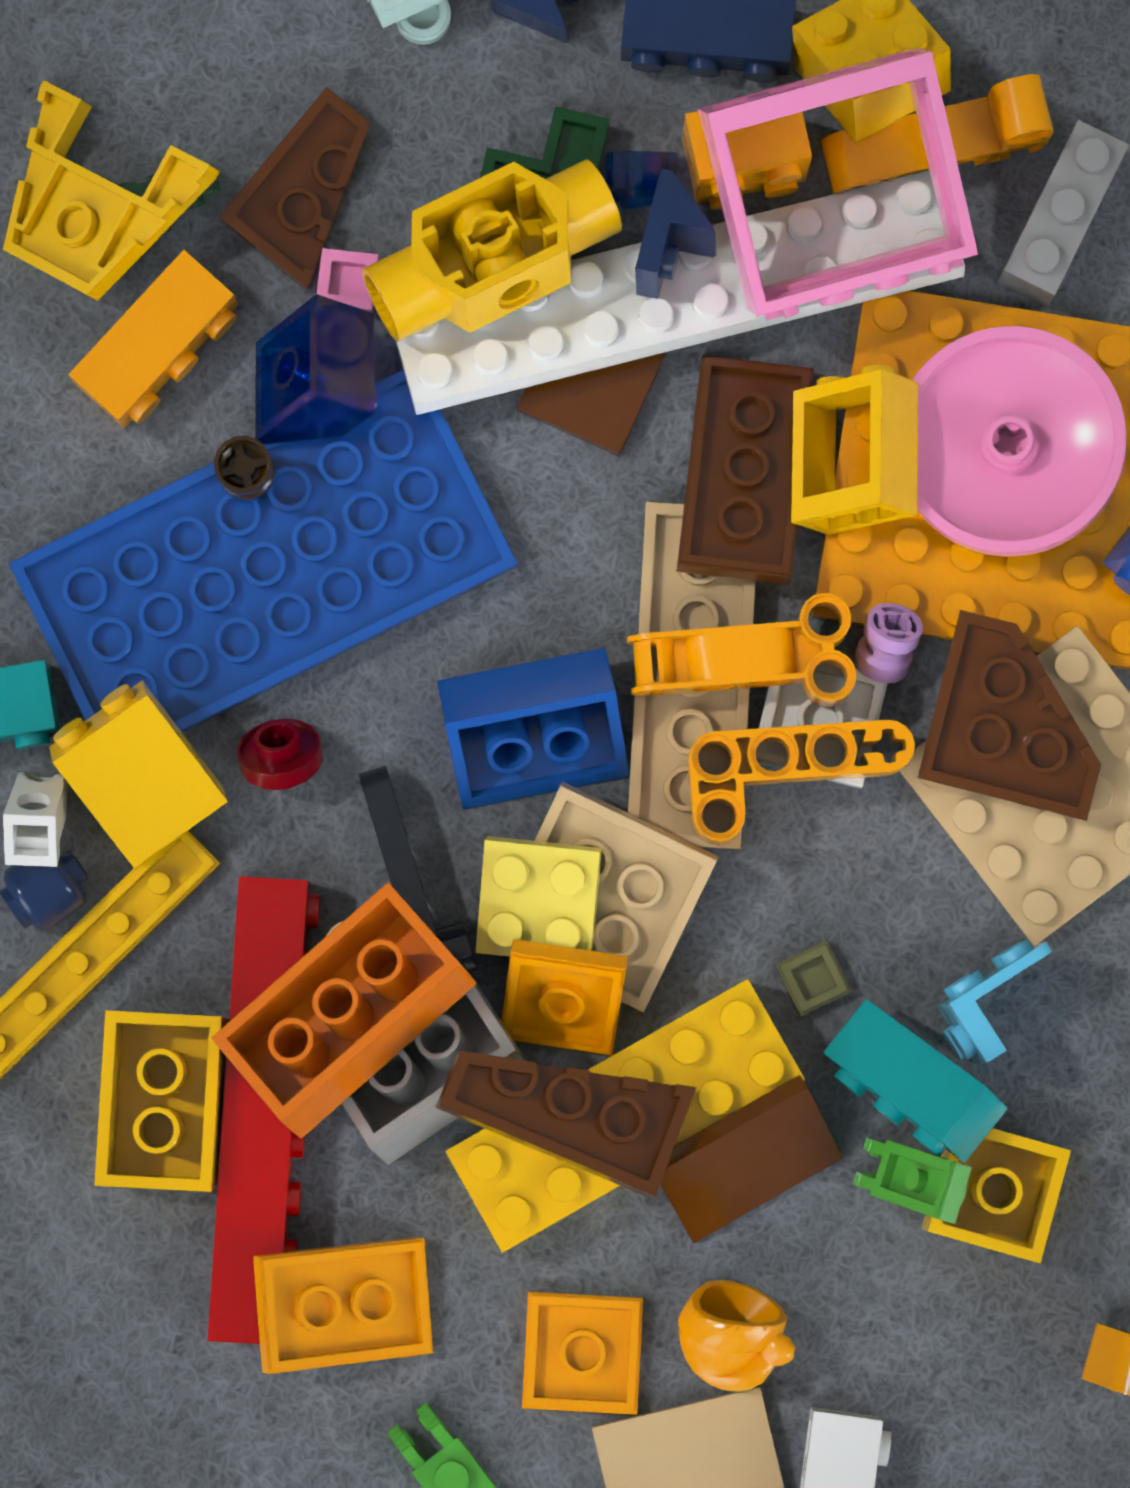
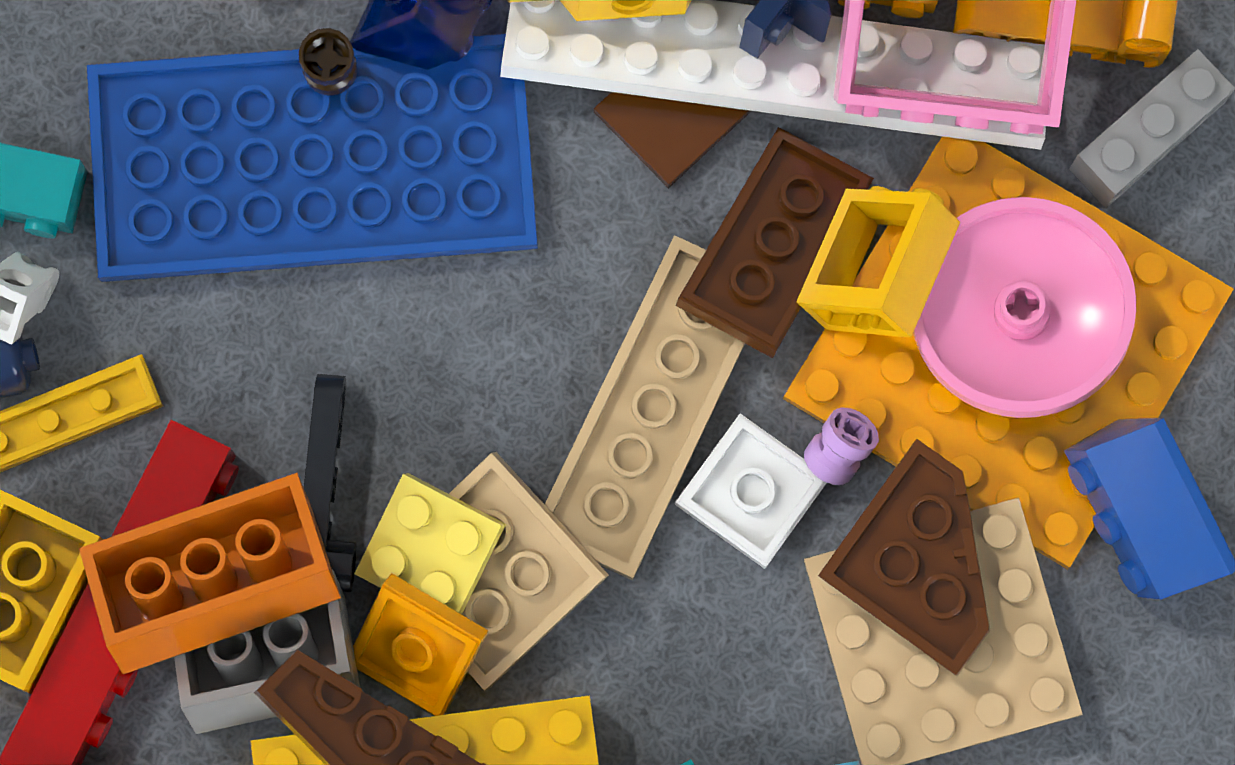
camera: 20 degrees right, 5 degrees down
(136, 772) = (119, 290): yellow brick -> none
(280, 754) = (254, 328): dark red plate -> none
(533, 728) = (490, 394): blue slope -> none
(746, 656) = (707, 405): light orange piece -> none
(800, 765) = (714, 524): light orange beam -> none
(813, 978) = (652, 723): olive tile -> none

